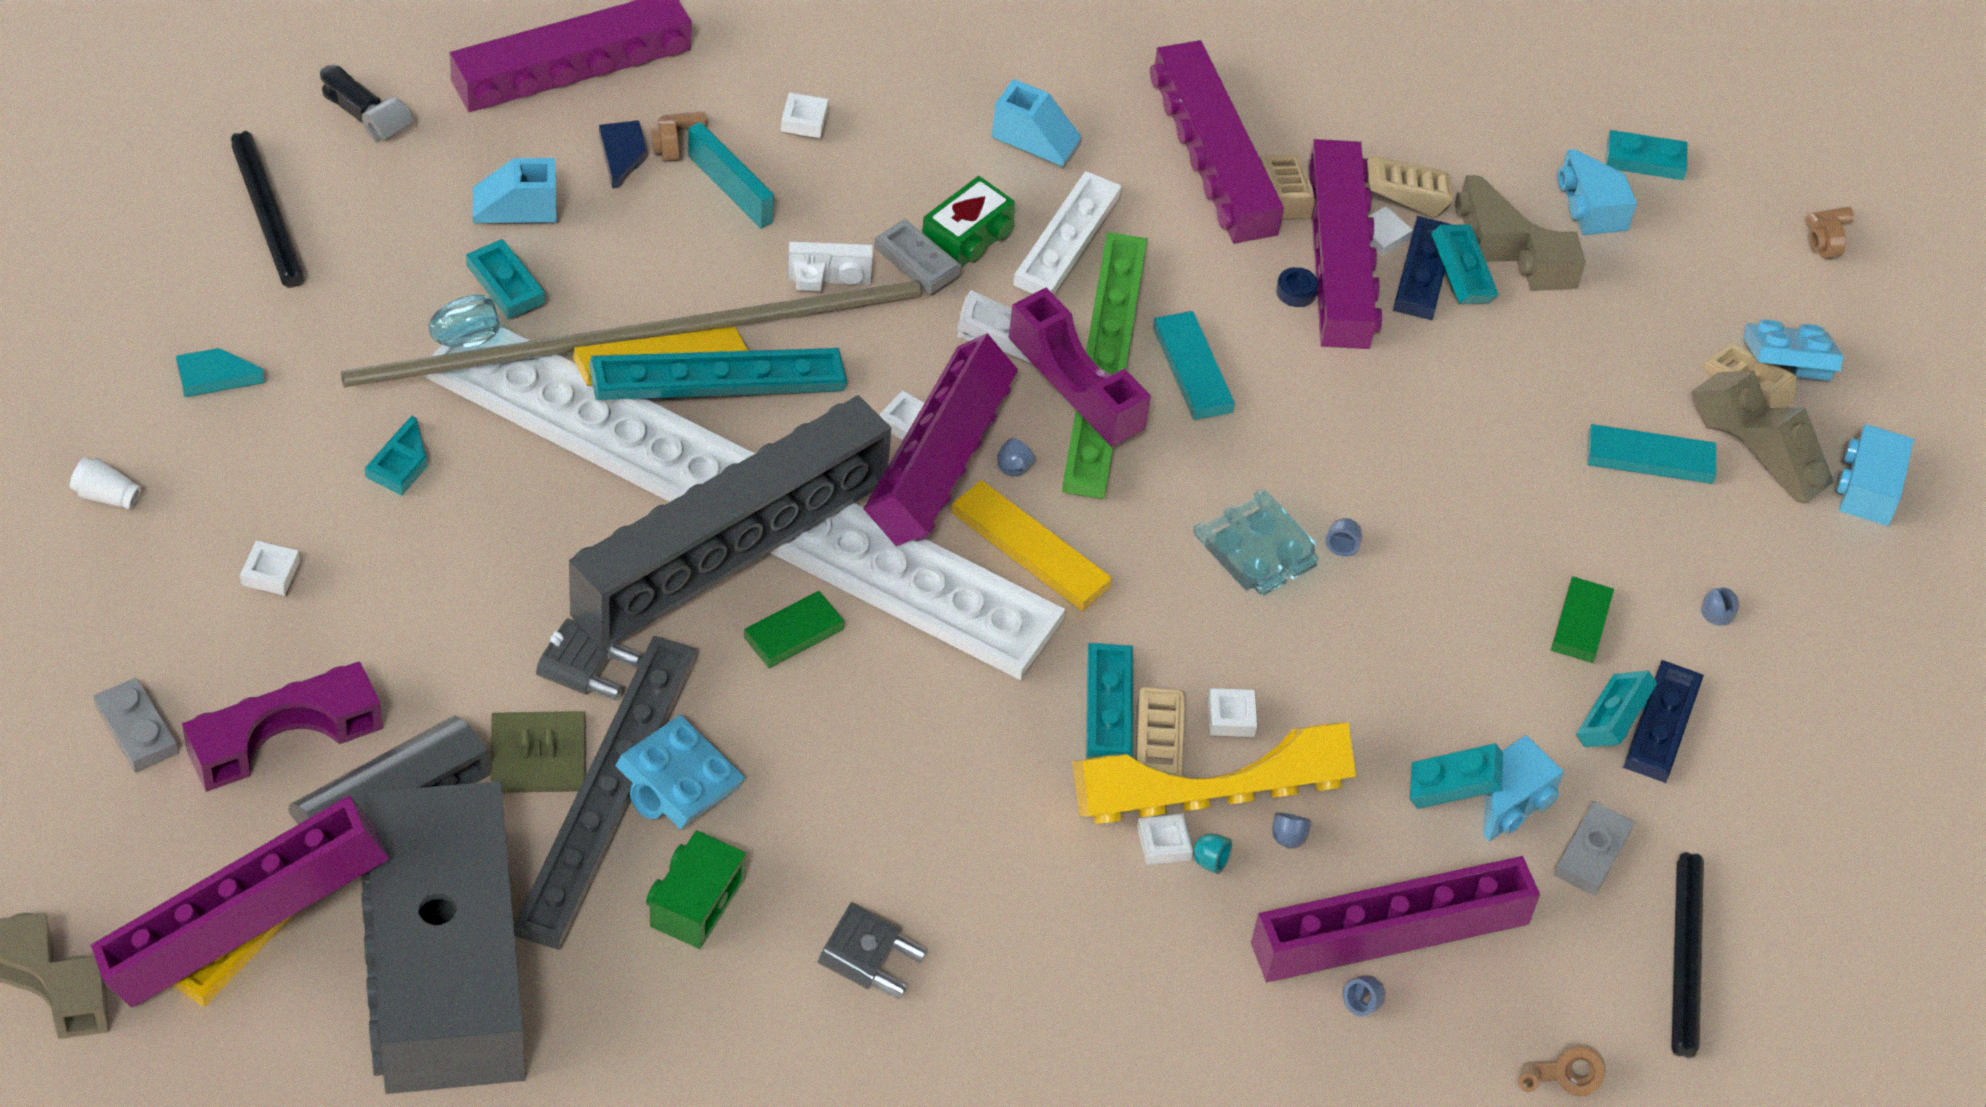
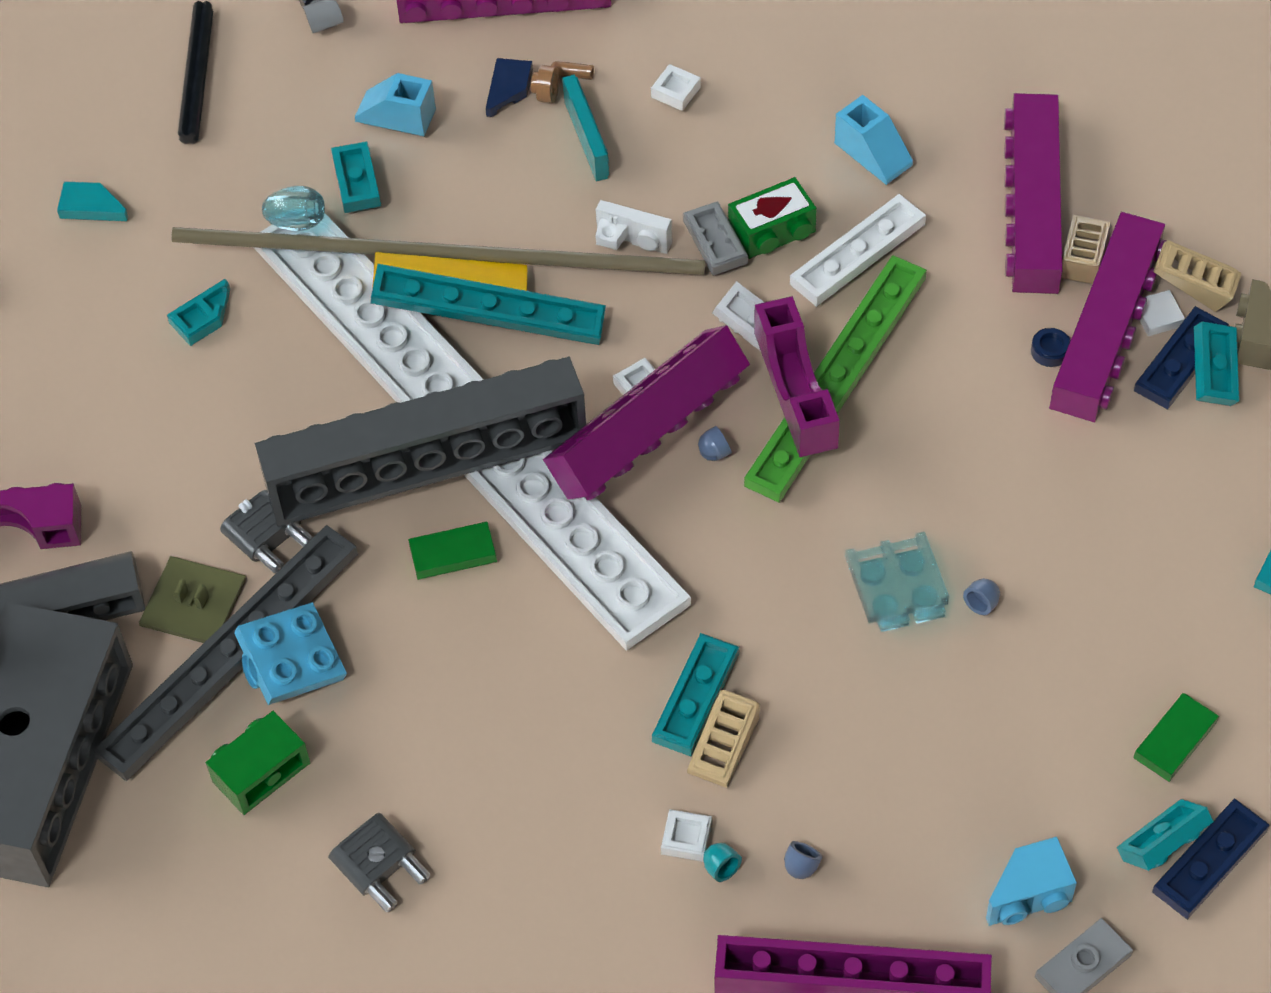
camera: 30 degrees right, 5 degrees up
(270, 568) = (51, 382): white plate -> none
(1031, 545) = (694, 529): yellow tile -> none
(1193, 365) = (918, 398): teal tile -> none
(1232, 712) = (799, 734): white plate -> none
(1304, 756) = (663, 775): yellow arch -> none
(1456, 776) = (975, 856): teal plate -> none

